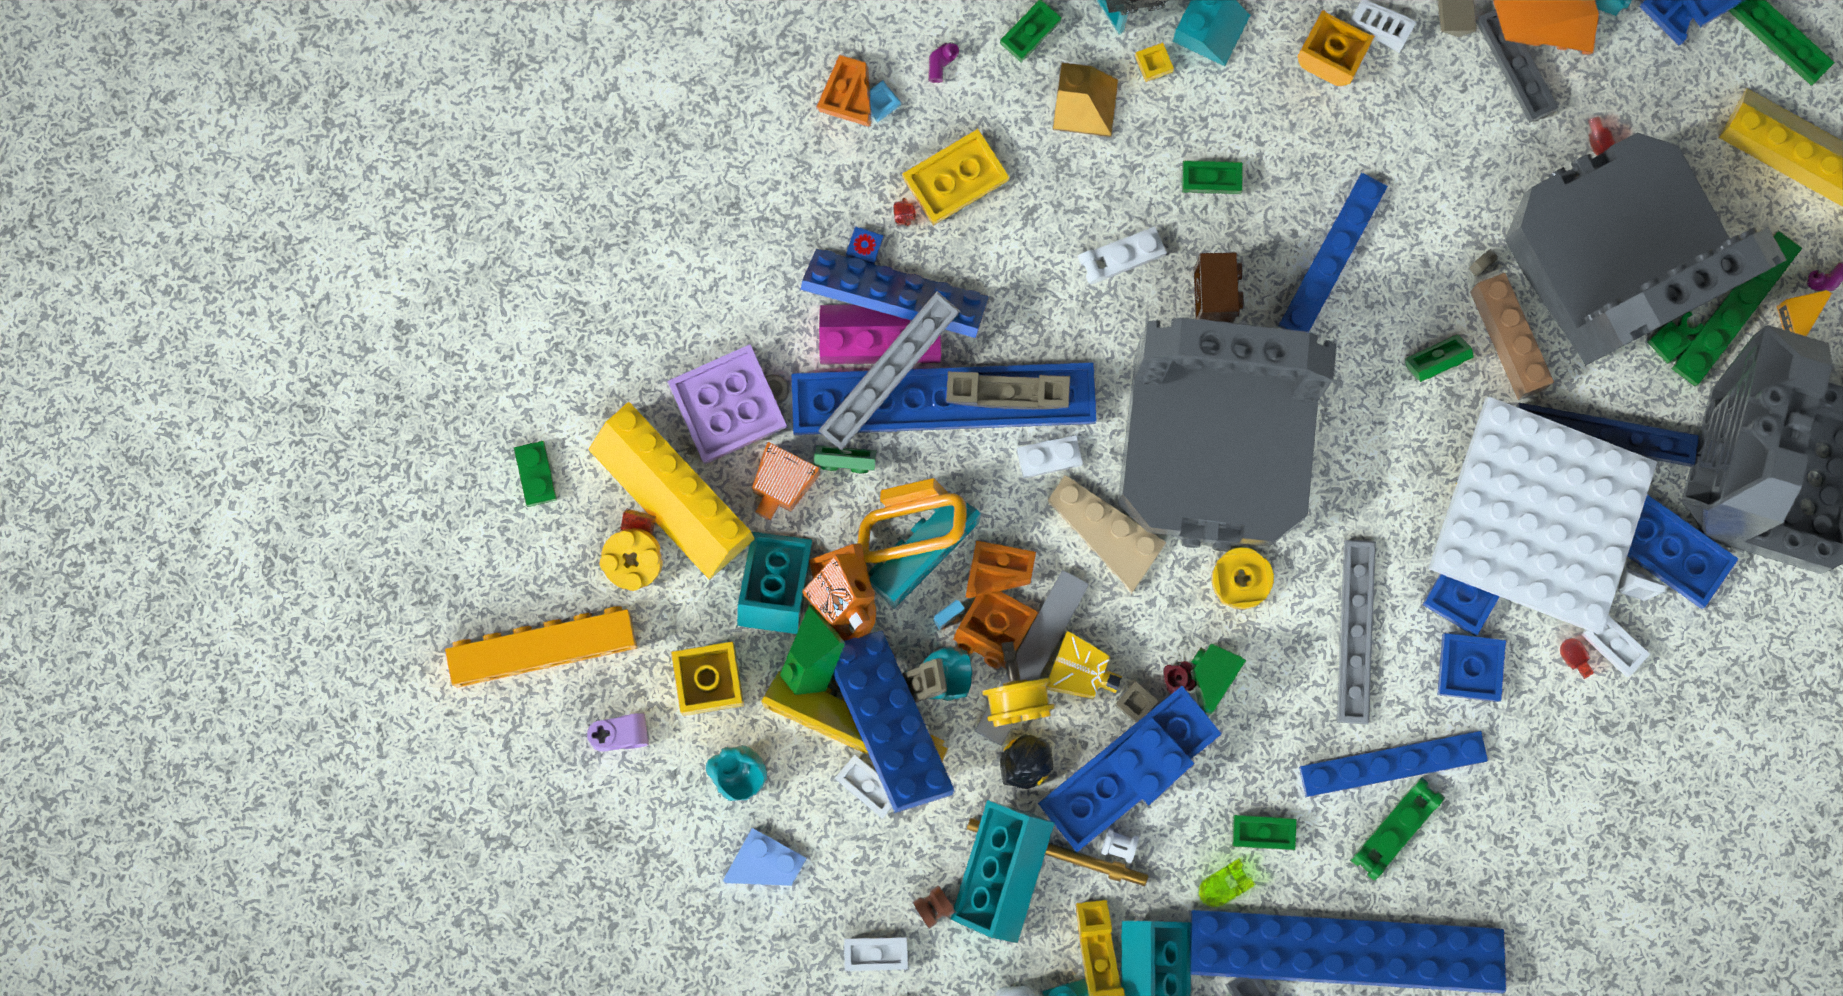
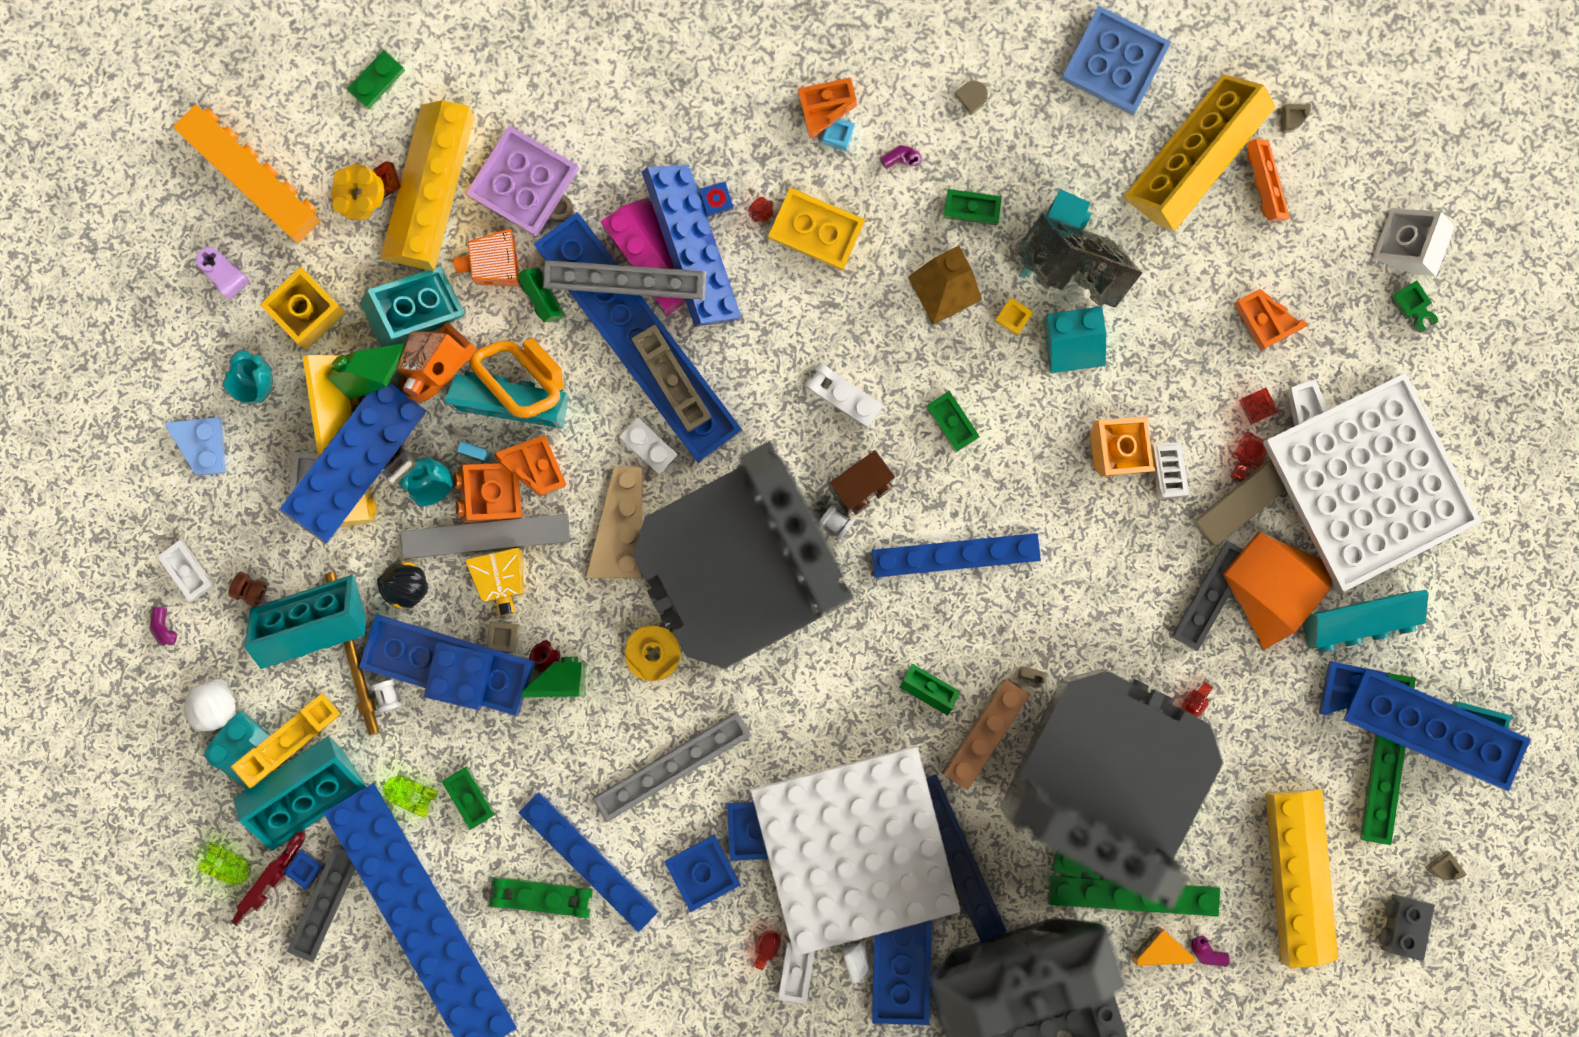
camera: 55 degrees right, 5 degrees up
(1017, 696) = (437, 544): yellow wheel -> none

